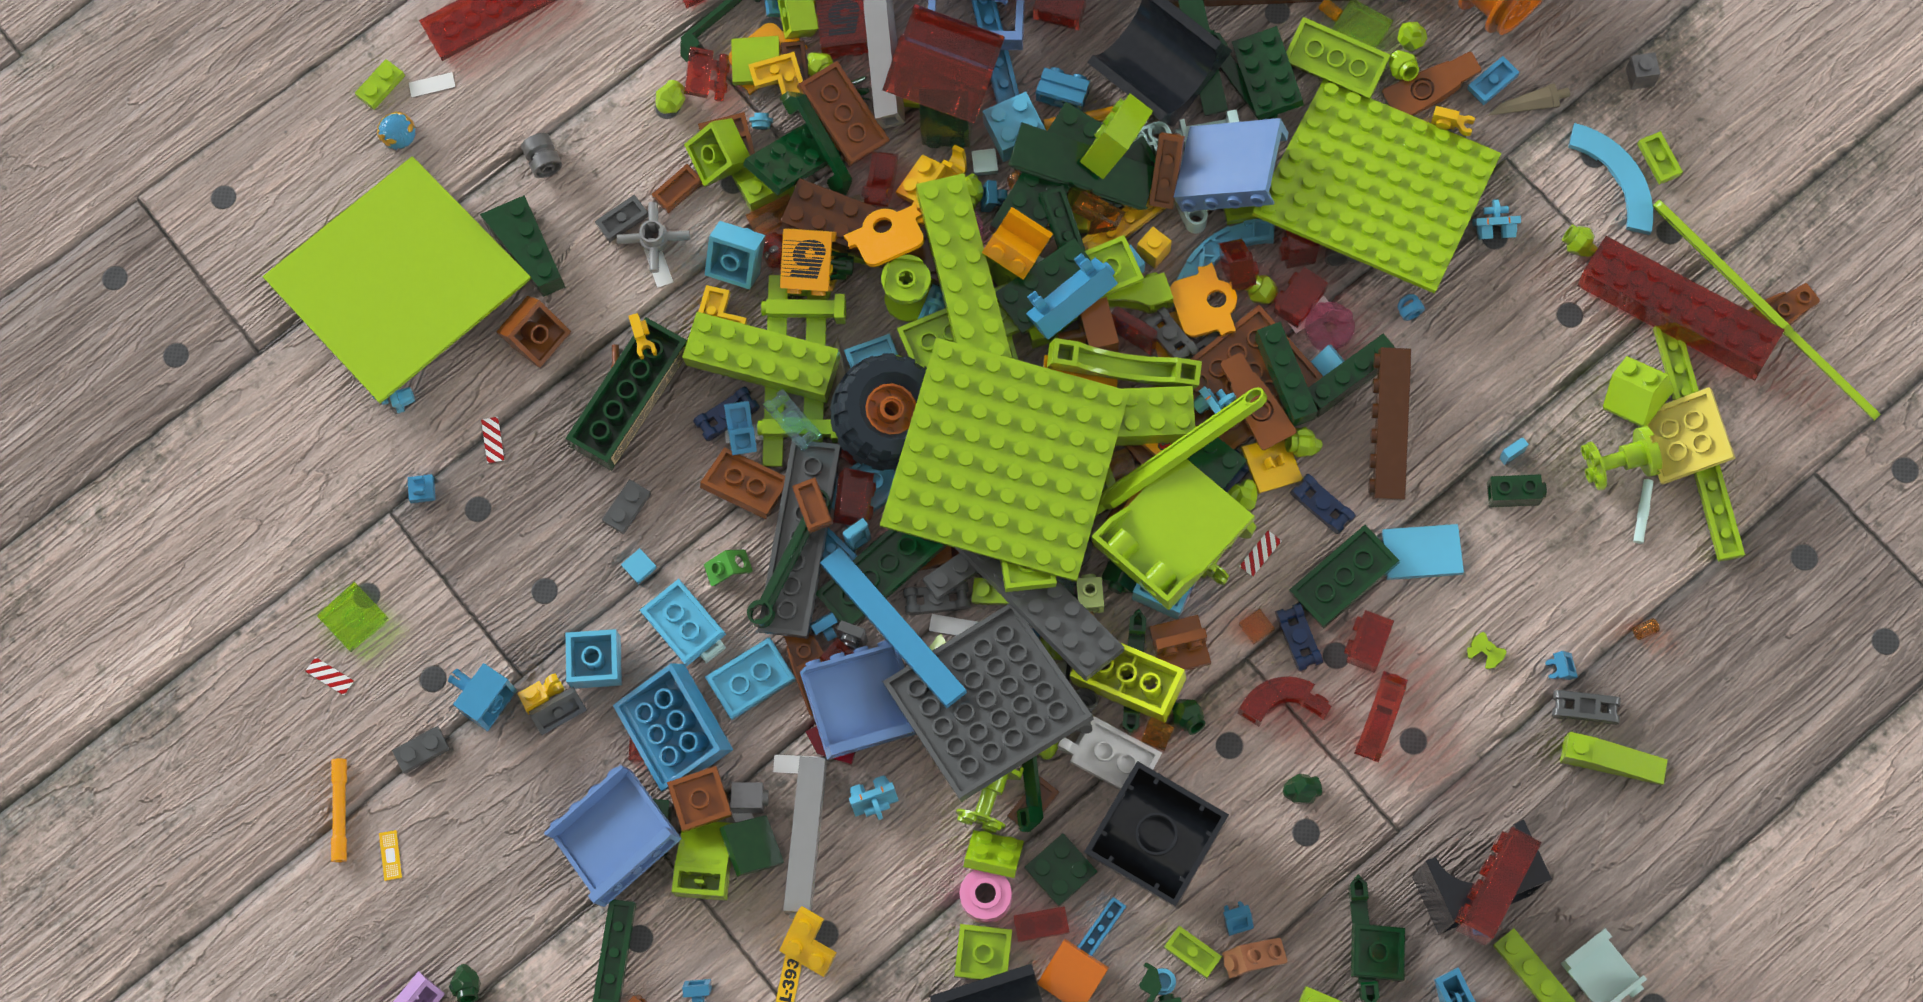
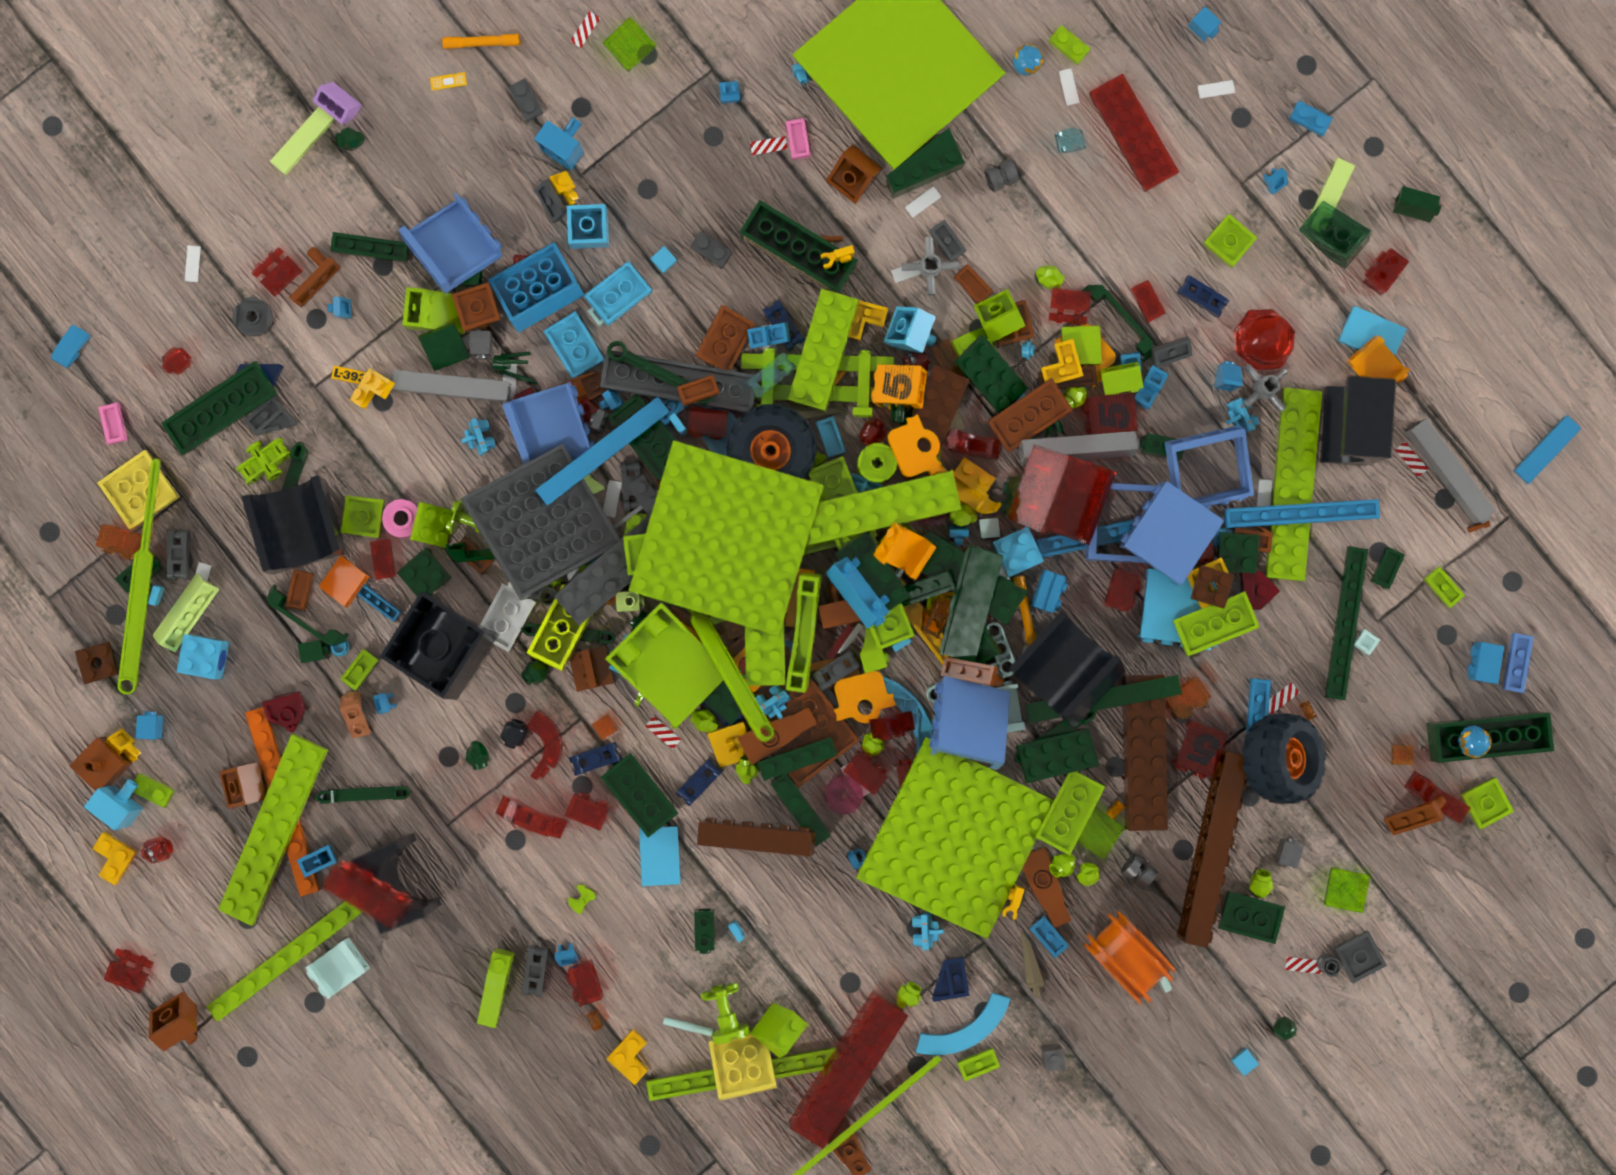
camera: 80 degrees right, 15 degrees up
(485, 402) = (798, 139): none -> bright pink tile
(500, 79) = (1070, 140): none -> clear light blue brick
(570, 251) = (923, 201): none -> white sticker
(724, 566) = (659, 324): bright green bracket -> none
(773, 769) = (503, 362): none -> dark green plant
(798, 102) = (1036, 379): dark green piece -> none
(866, 300) = (872, 432): none -> clear red head
(970, 590) = (635, 511): none -> light grey piece
(1116, 135) = (994, 632): lime wedge -> none
(1154, 247) = (911, 659): yellow brick -> none
(1157, 734) = (520, 649): clear orange plate -> none
(1270, 740) = (514, 733): none -> black head
(1327, 360) = (813, 792): medium azure tile -> none
(1378, 952) = (356, 804): dark green tile -> none
(1557, 192) = (951, 980): none -> dark blue wing
(1596, 639) = (585, 983): none -> clear red brick
(1689, 591) = (624, 1057): none -> yellow plate

